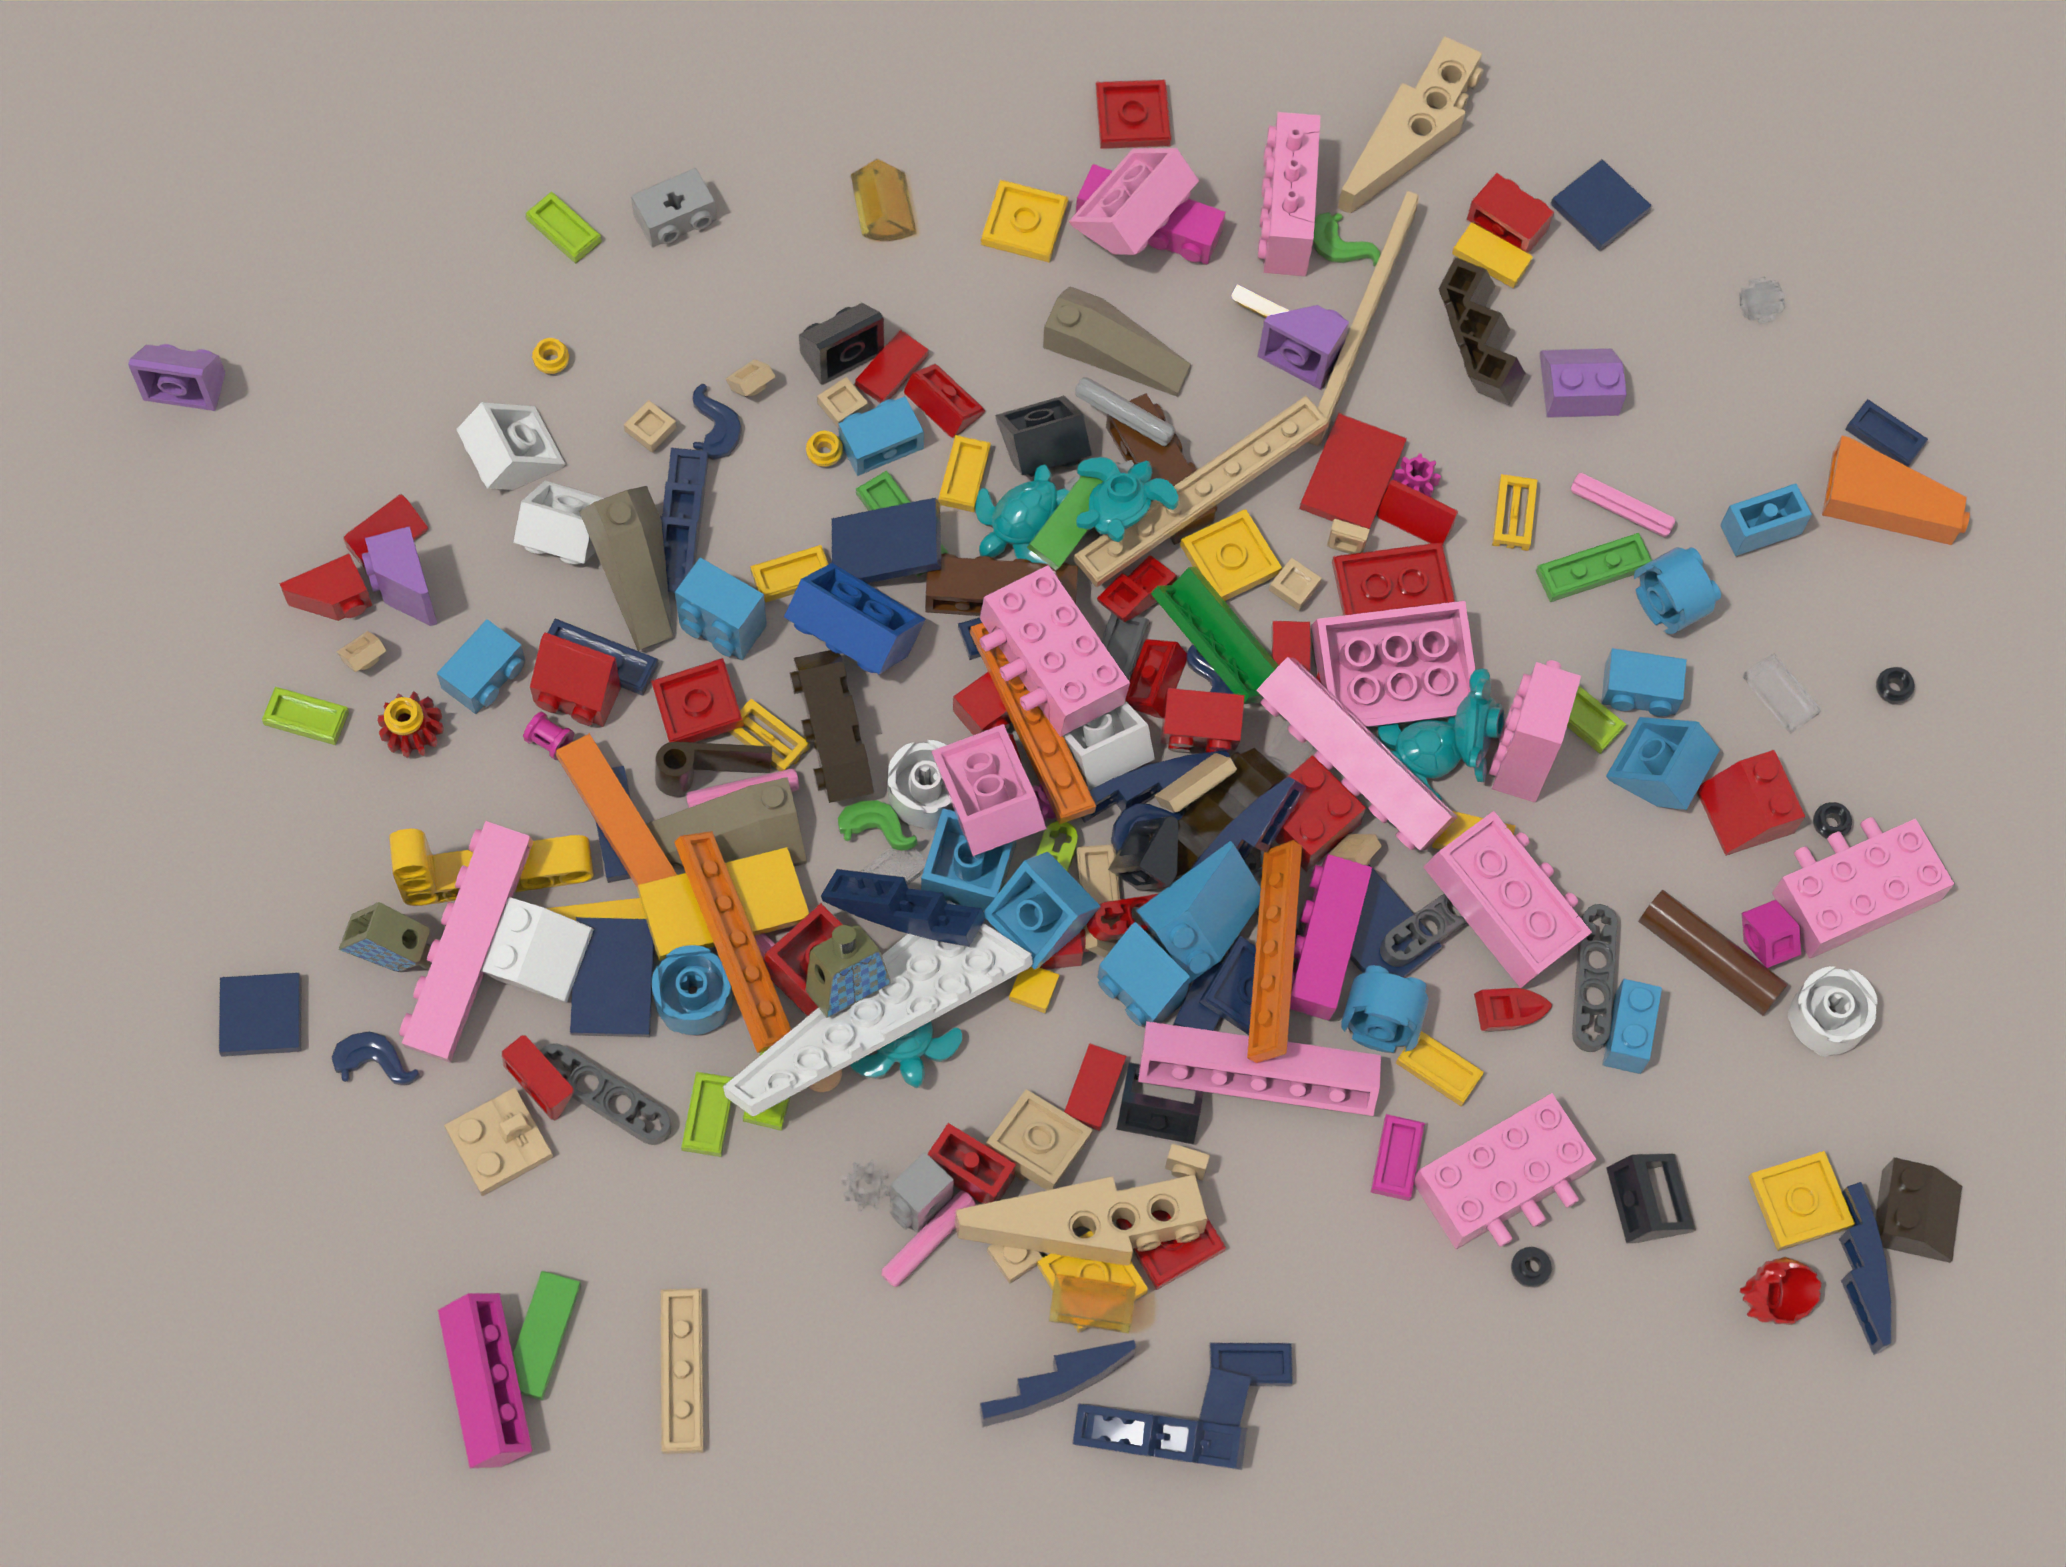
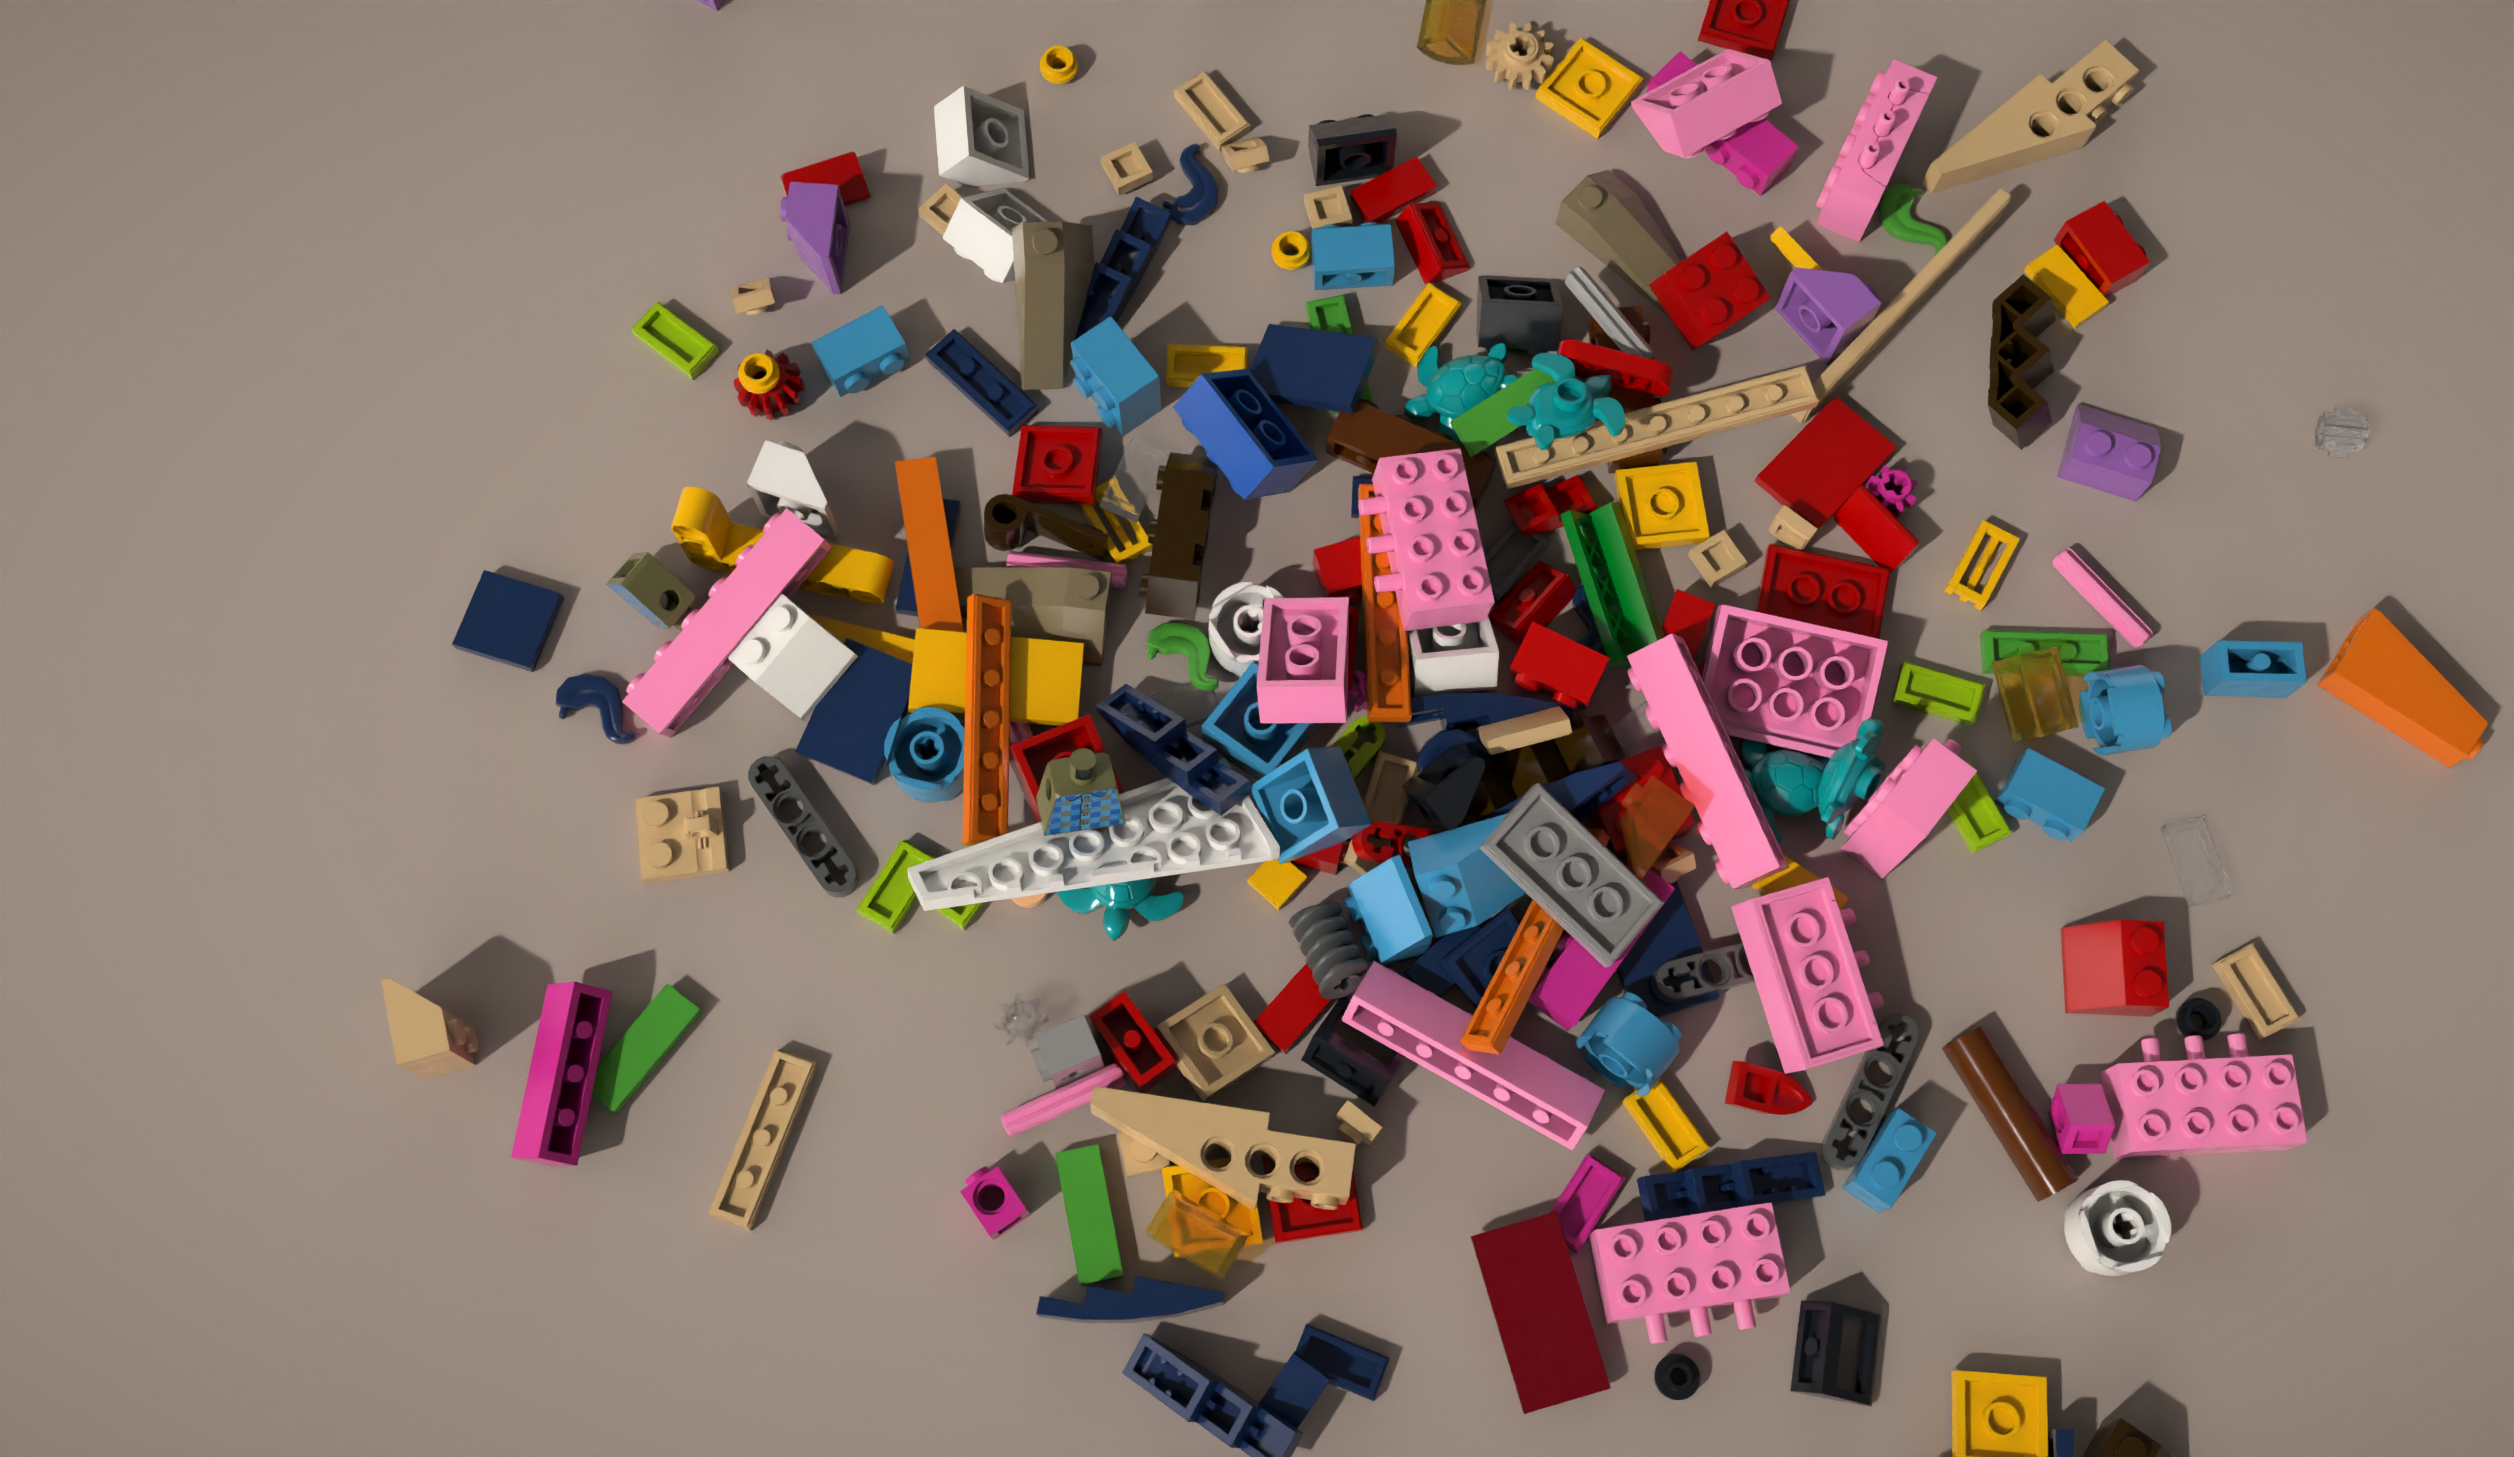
camera: 25 degrees right, 5 degrees up
(329, 590) = (747, 223): red slope -> none
(353, 1387) = (425, 1035): none -> tan slope
(472, 798) = (786, 480): none -> white slope
(501, 517) = (940, 208): none -> tan plate
(537, 1076) = (742, 784): red slope -> none
(547, 734) = (896, 441): dark pink bush -> none
(574, 680) = (943, 398): red slope -> none
(703, 350) = (1212, 110): none -> tan tile
(770, 693) = (1133, 480): none -> clear tile
(913, 1360) = (1005, 1217): none -> dark pink brick
(954, 213) = (1519, 56): none -> tan gear
(990, 1325) = (1089, 1215): none -> bright green tile
(1104, 1026) = (1329, 949): none -> dark grey piece
(1158, 450) = (1625, 369): none -> red beam
(1199, 360) = (1709, 291): none -> red brick
(1284, 885) = (1571, 875): none -> light grey tile
(1332, 820) = (1651, 822): none -> clear orange slope
(1399, 1257) = (1540, 1312): none -> dark red tile
(1521, 631) = (1938, 693): none -> lime tile
(1524, 1086) = (1731, 1186): none -> dark blue slope
(1599, 603) = (2035, 694): none -> clear yellow brick
(1601, 205) = (2205, 272): dark blue tile -> none
(1664, 761) = (2038, 888): dark azure slope -> none
(1869, 781) = (2256, 991): none -> tan tile
(1886, 433) = (2423, 622): dark blue tile -> none
(1898, 676) = (2334, 890): black plate -> none

